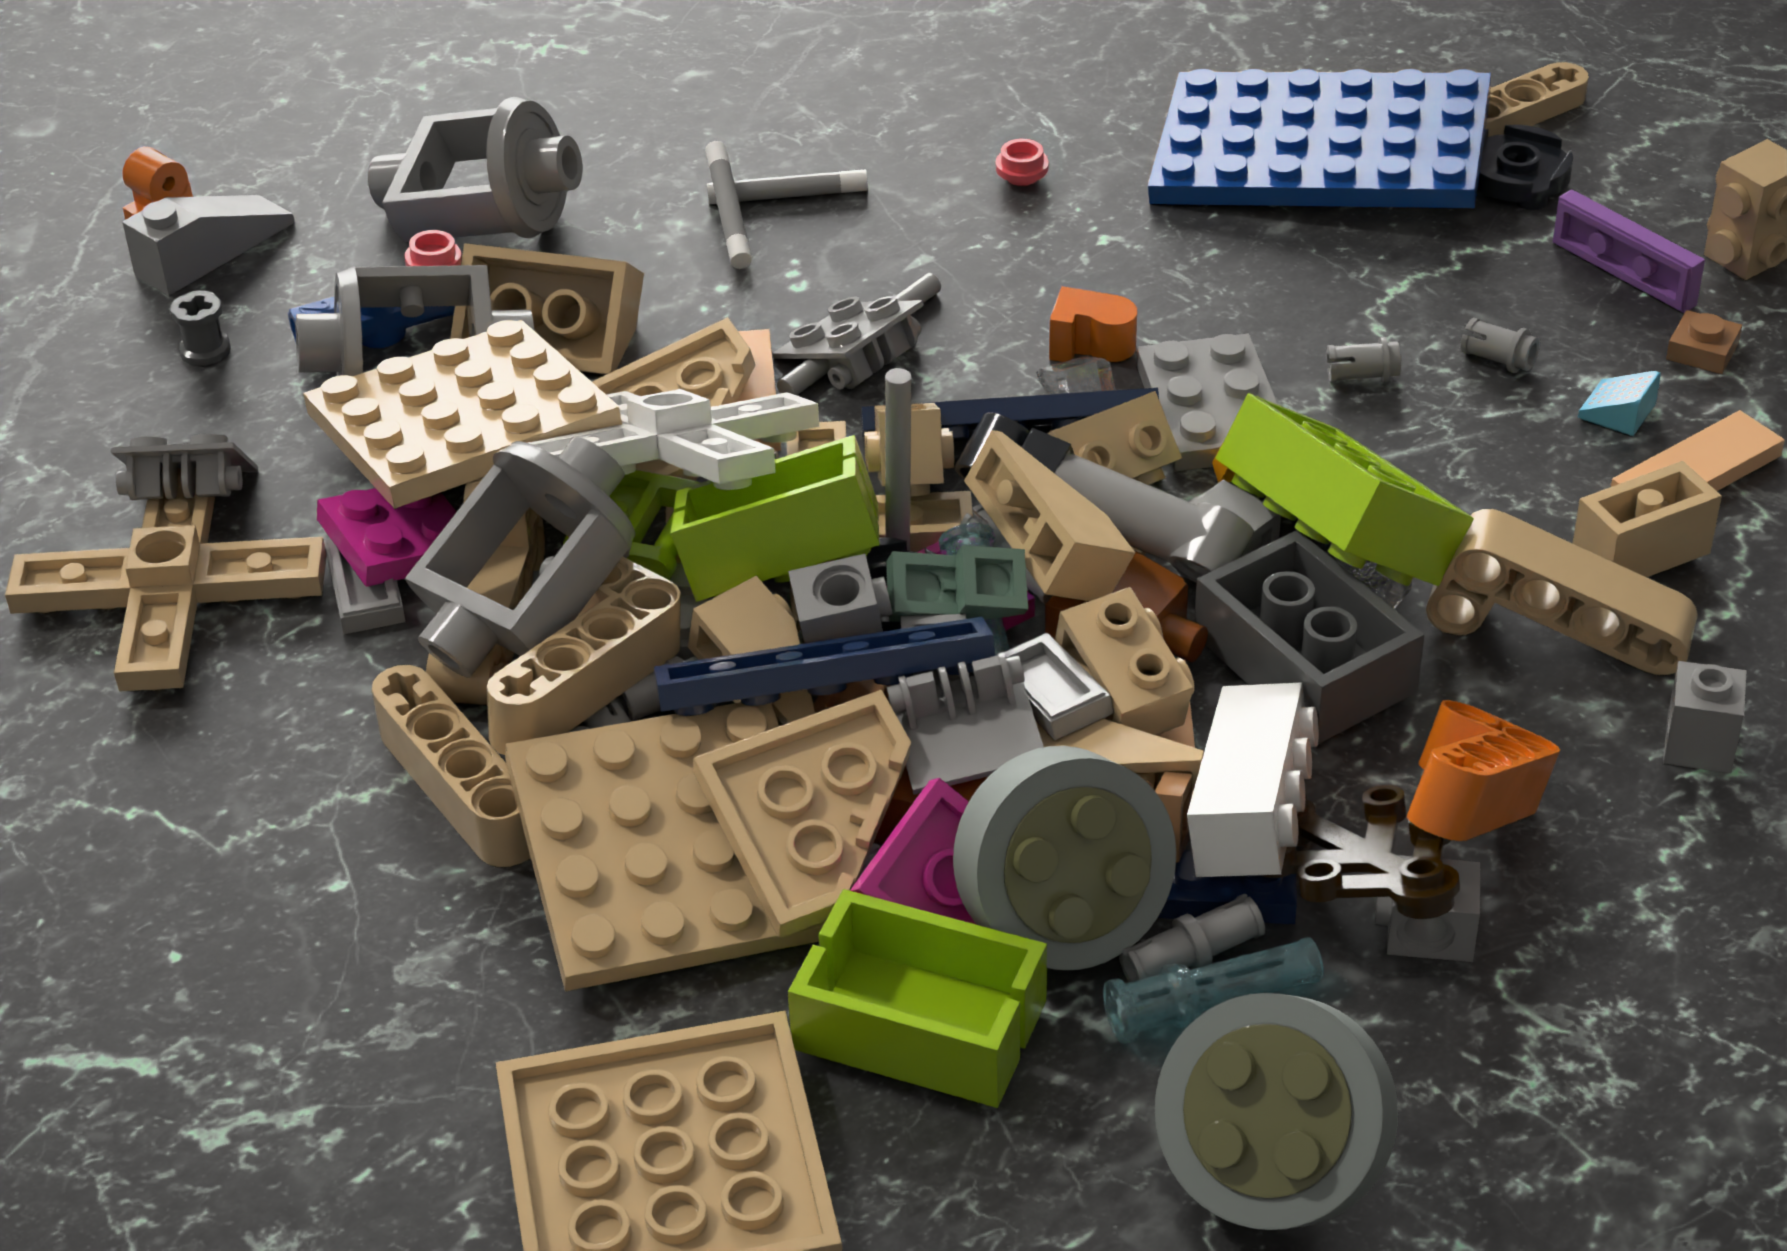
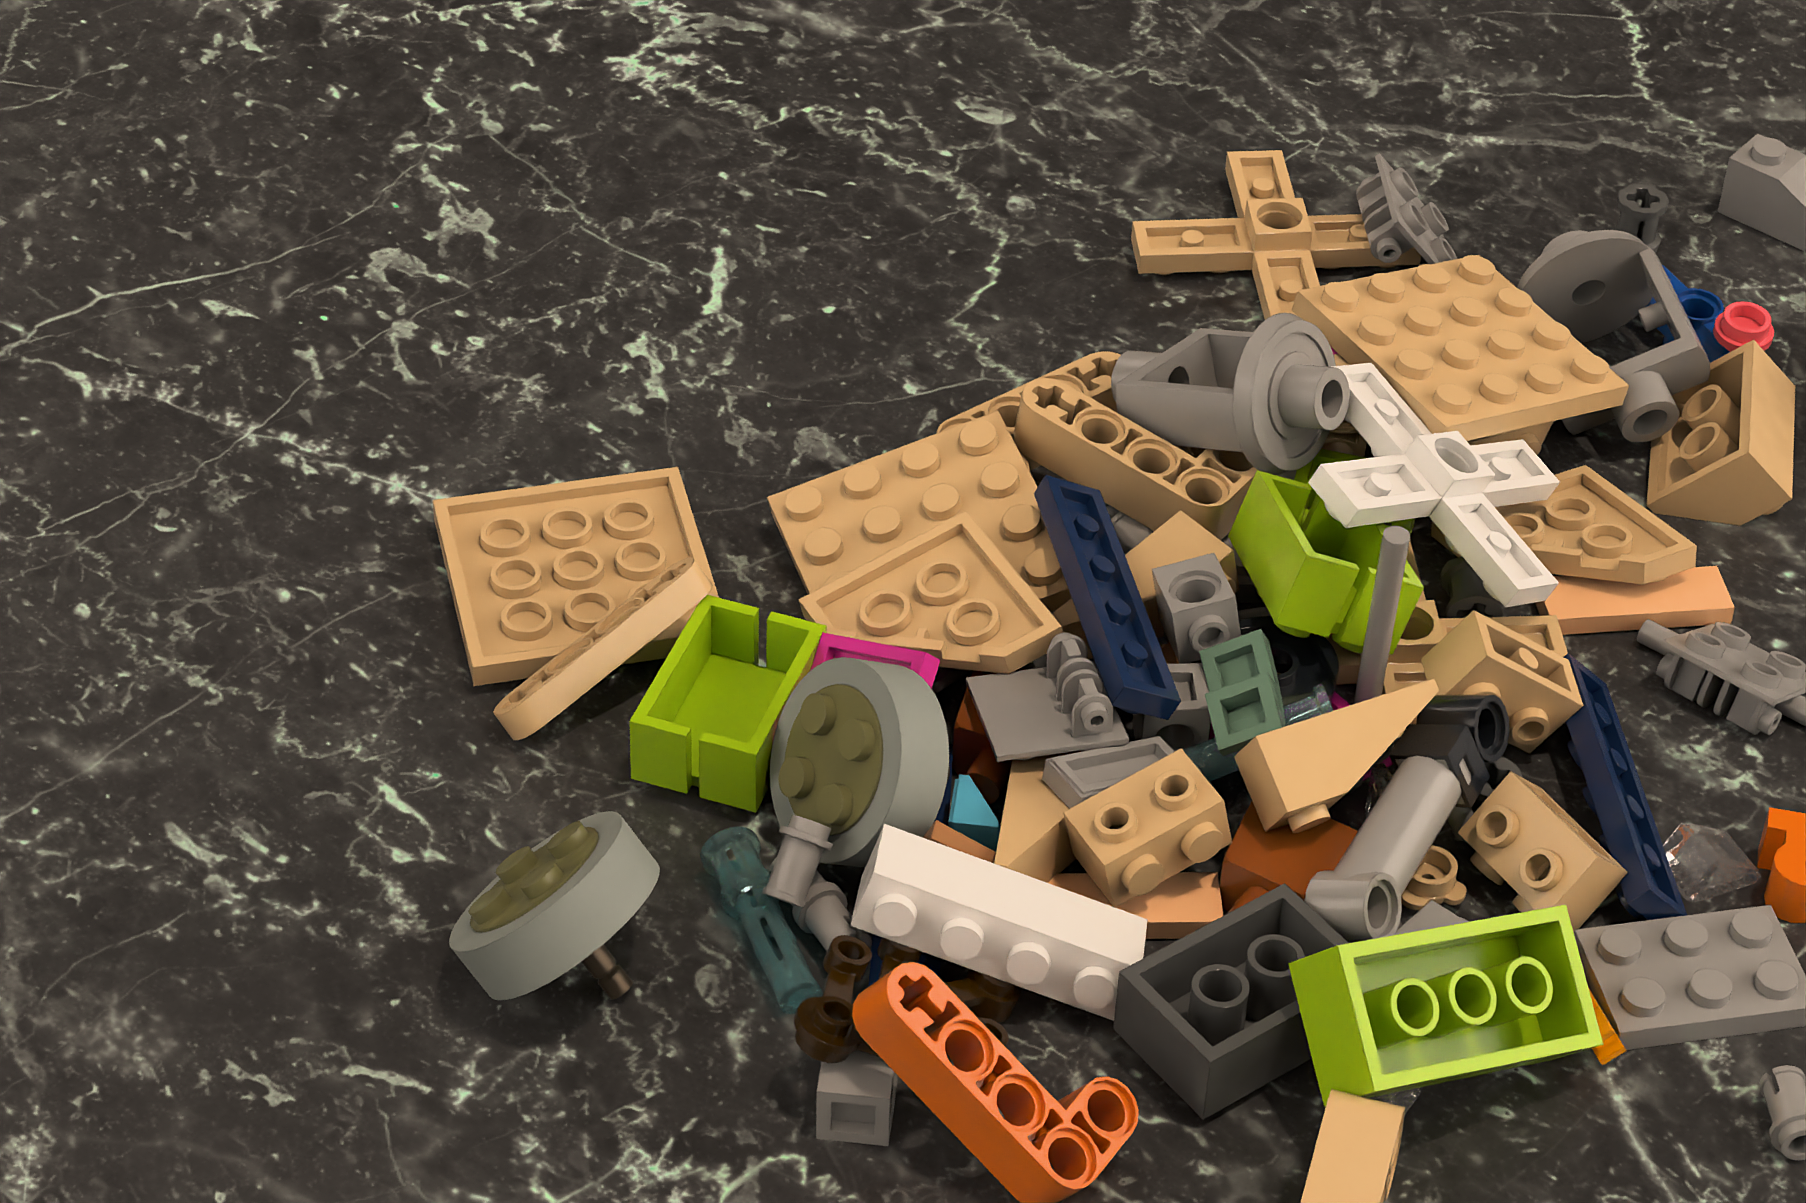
camera: 85 degrees right, 0 degrees up
(831, 1109) = (602, 648): none -> tan beam
(1181, 922) = (797, 860): none -> light grey pin

